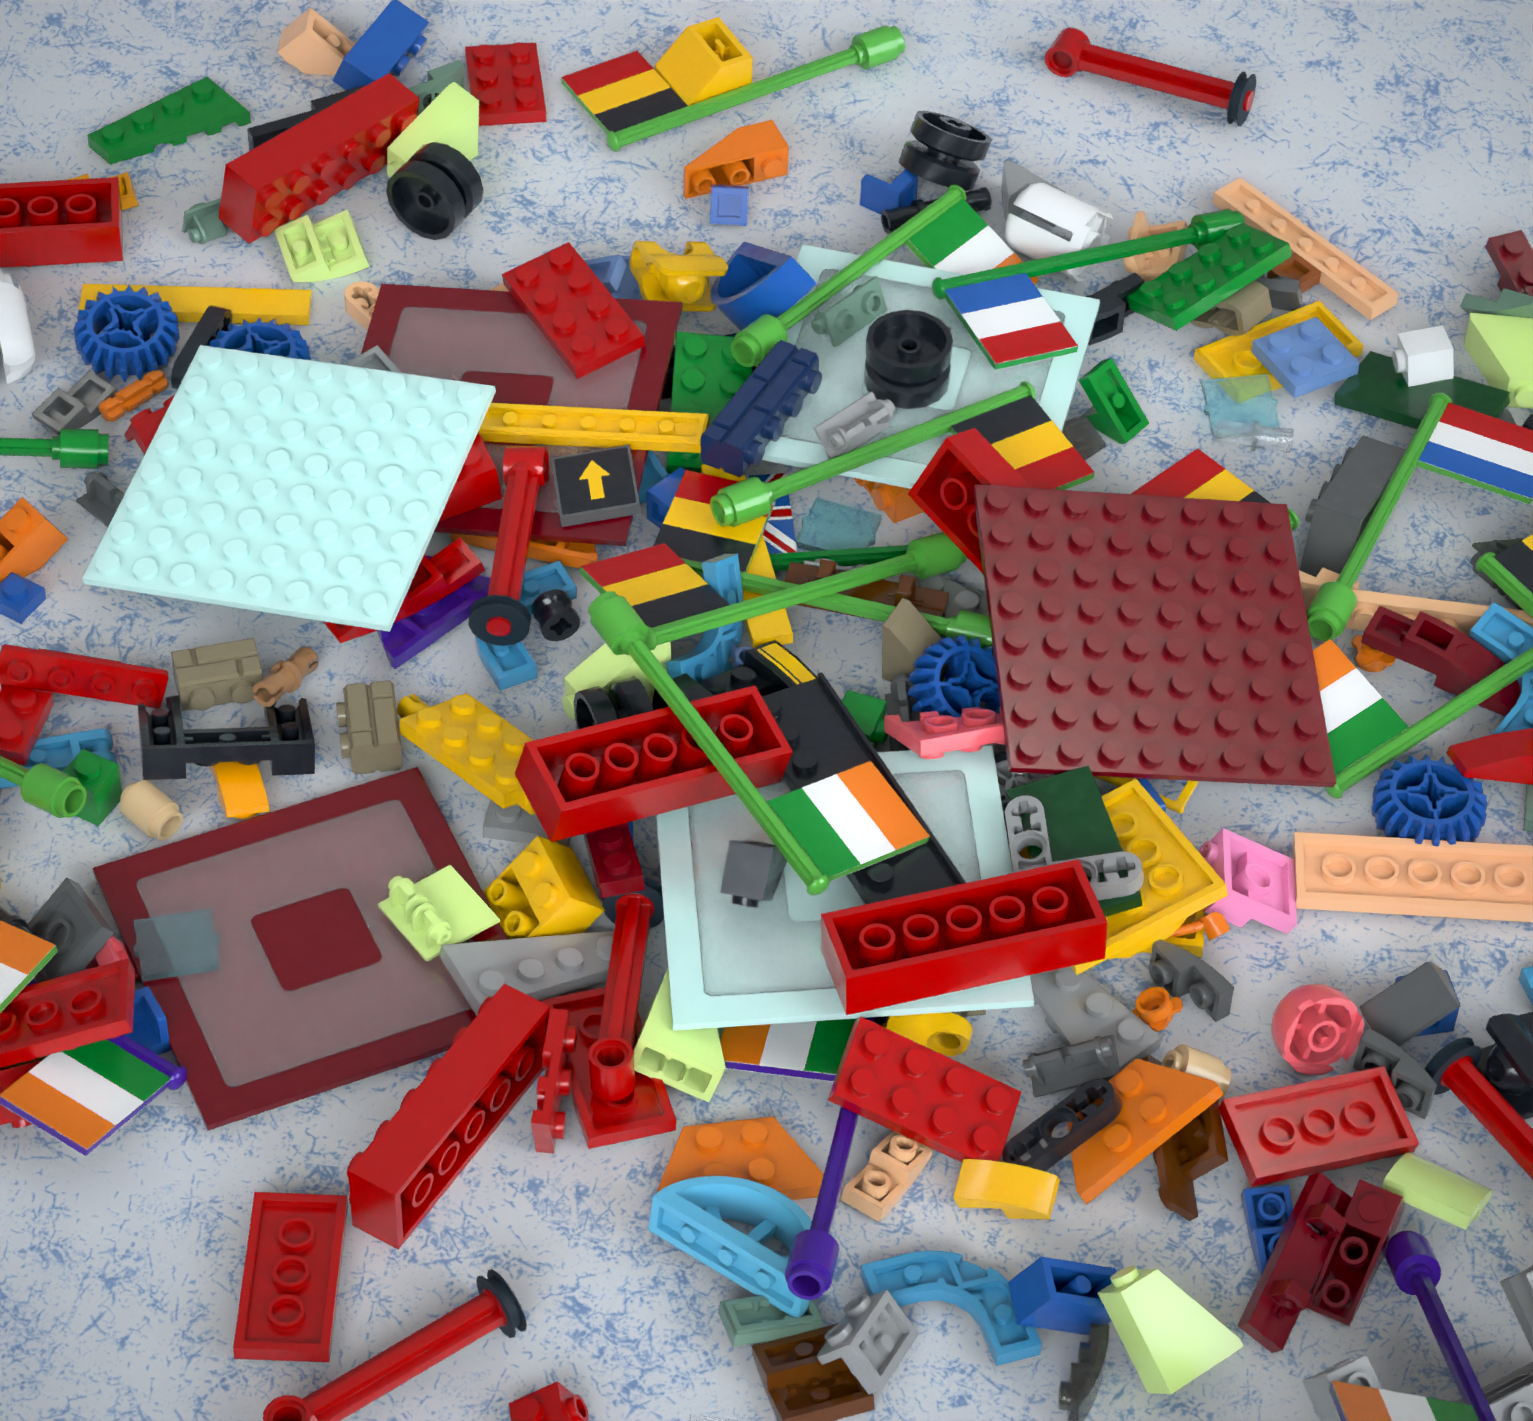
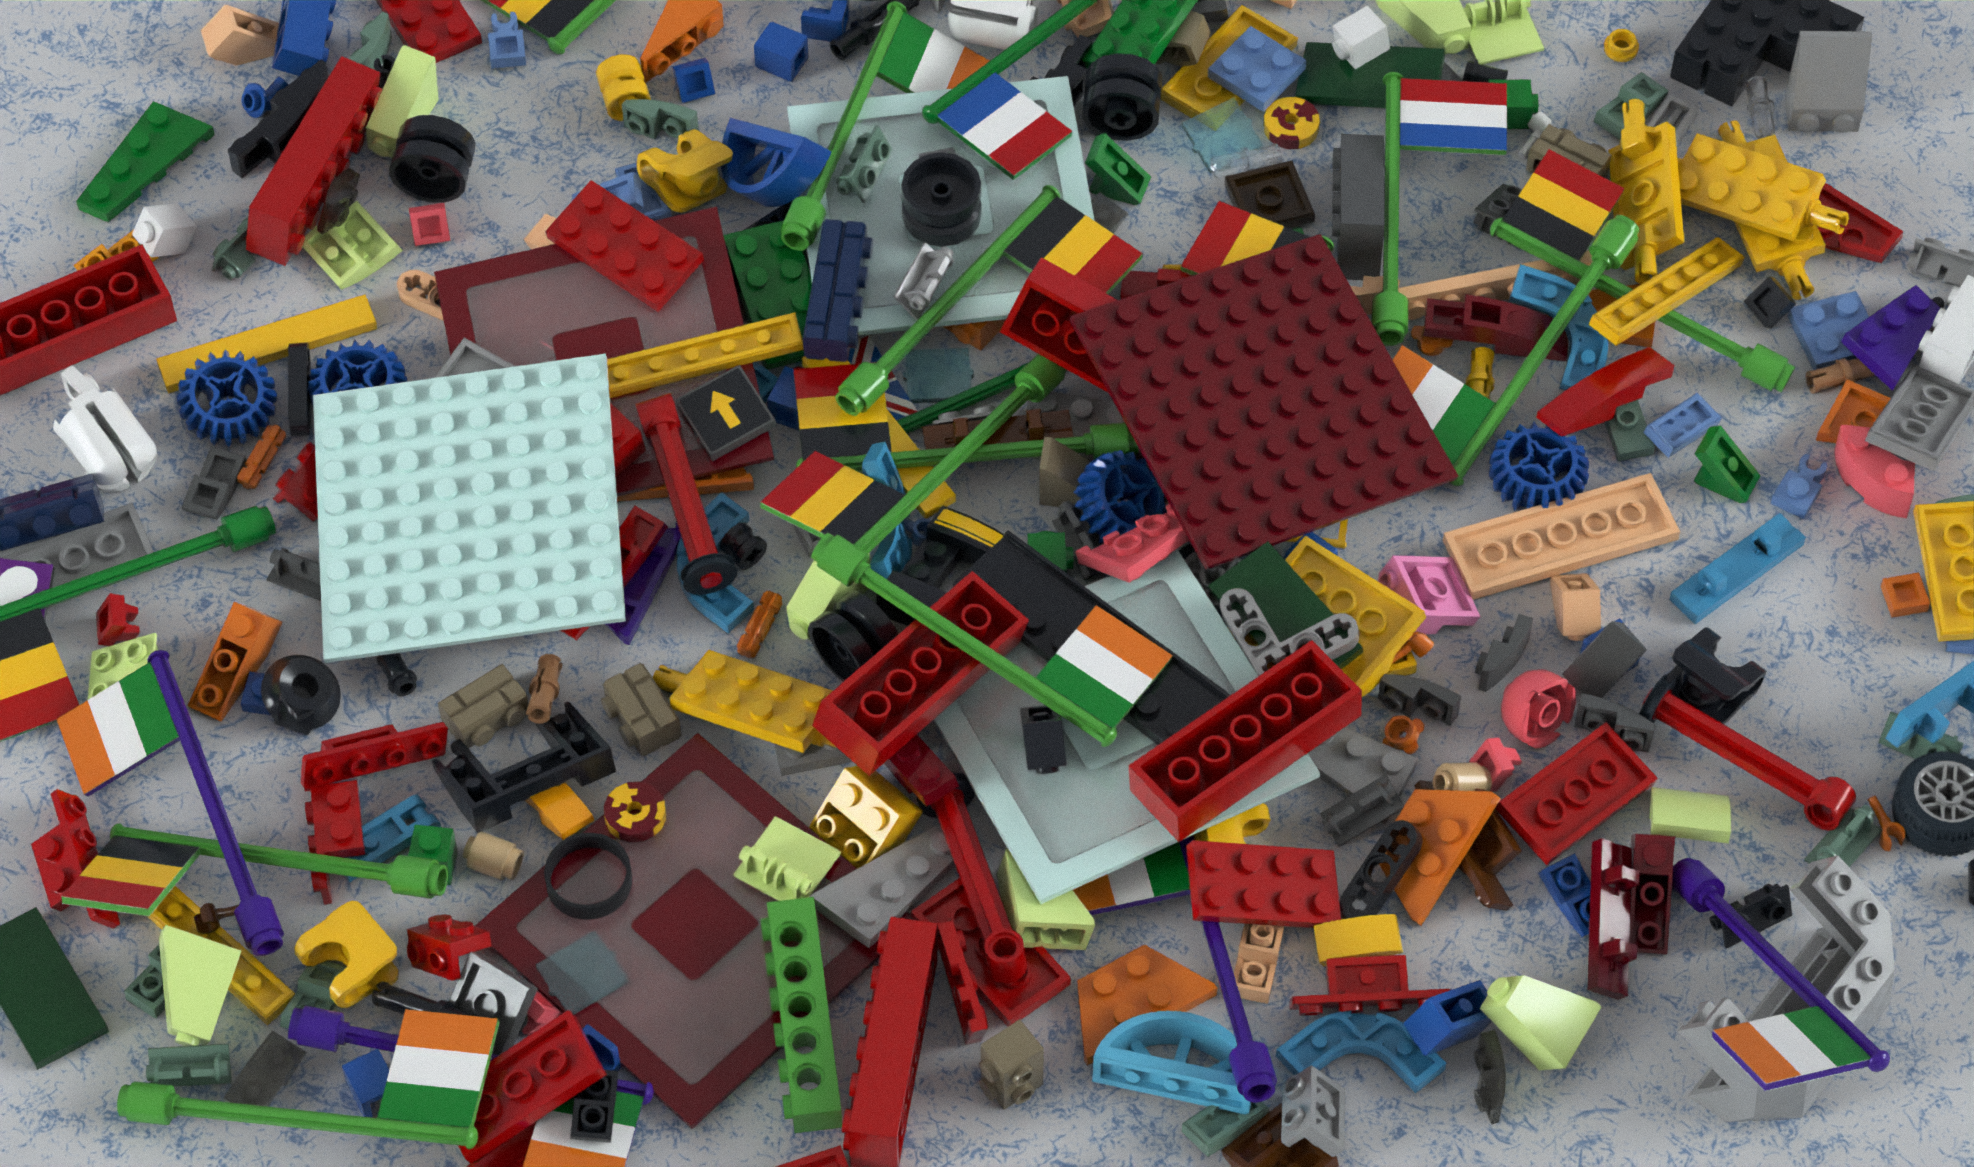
camera: 20 degrees left, 10 degrees up
(48, 606) = (300, 693): none -> black piece
(58, 860) = (440, 942): none -> red bracket
(111, 1065) = (595, 1110): none -> black slope
(150, 178) = (164, 230): none -> white brick
(152, 624) = (400, 678): none -> black pin
(229, 823) = (582, 841): none -> black tyre
(301, 99) = (257, 100): none -> blue plate
(315, 800) = (639, 826): none -> piece
(326, 199) = (339, 197): none -> clear smoke slope
(373, 1054) = (820, 1106): none -> bright green brick
(405, 249) = (429, 224): none -> coral tile
(534, 692) = (759, 624): none -> orange axle
(562, 1177) = (1011, 1065): none -> dark tan brick
(566, 126) = (506, 43): none -> medium blue plate
(656, 190) = (620, 80): none -> yellow wheel
(675, 224) = (652, 116): none -> sand green slope
(829, 206) = (781, 51): none -> blue panel
(982, 1233) = (1364, 982): none -> red bracket
(1149, 336) = (1122, 96): none -> black wheel
(1246, 1067) = (1497, 760): none -> coral tile
(1268, 470) = (1272, 194): none -> dark brown plate
(1306, 968) = (1505, 654): none -> dark grey slope
(1320, 418) = (1291, 135): none -> yellow piece
(1406, 945) = (1576, 605): none -> light nougat slope
(1411, 698) = (1481, 371): none -> yellow pin
(1472, 1317) = (1761, 911): none -> black hinge

